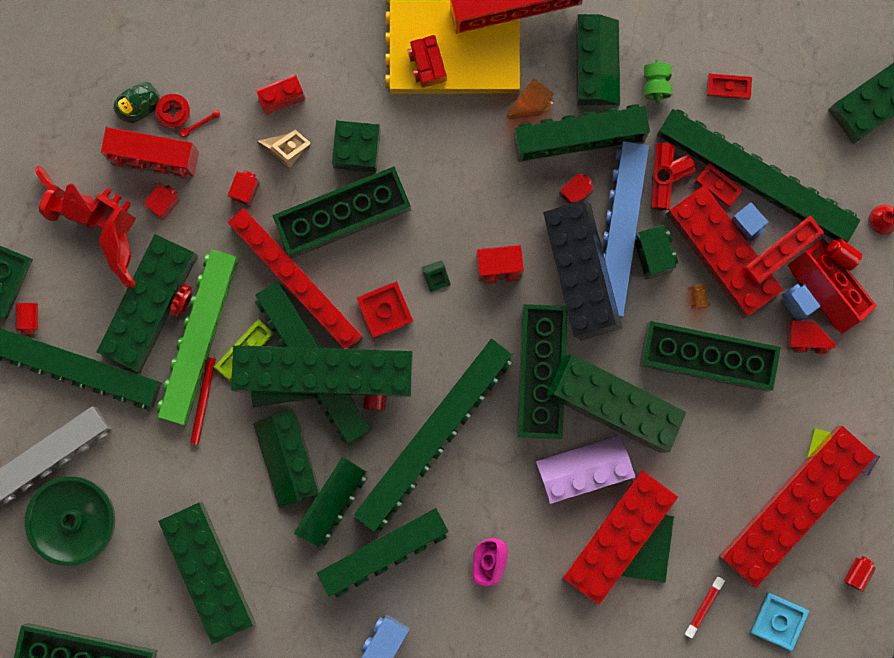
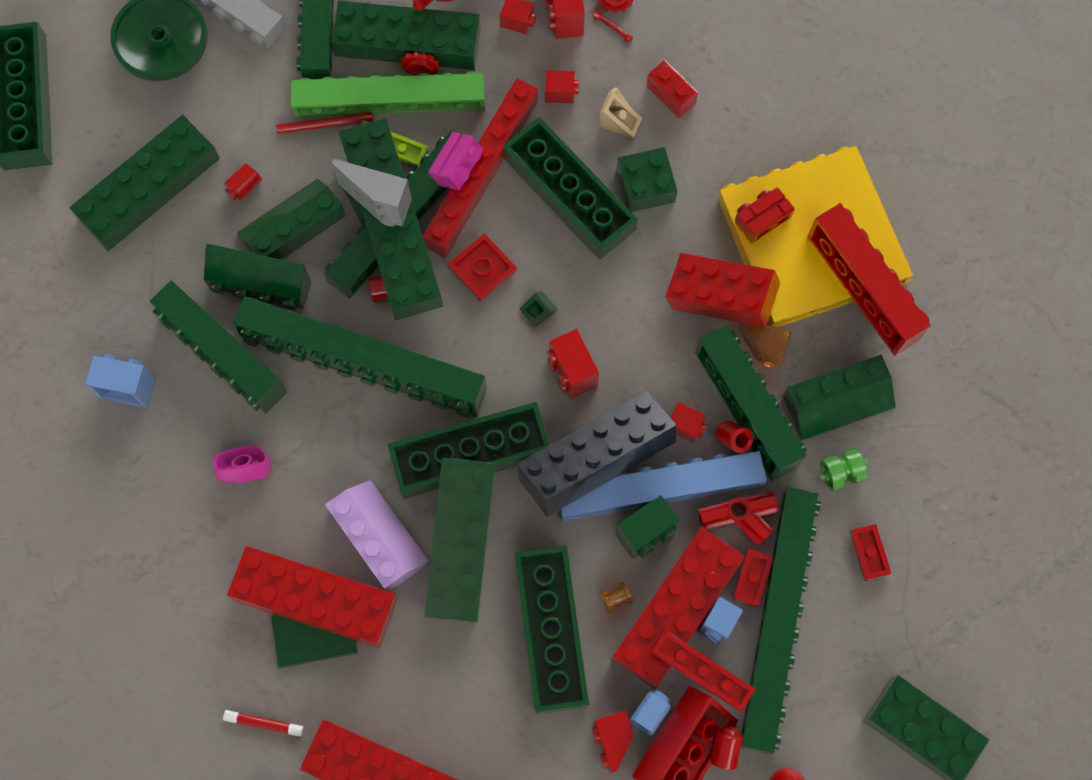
camera: 70 degrees right, 10 degrees down
(236, 488) = (242, 182): none -> red brick
(290, 298) = (455, 161): none -> dark pink brick
(311, 372) = (380, 193): none -> light grey slope
(479, 119) = (723, 289): none -> red brick
(603, 156) = (734, 436): none -> red brick

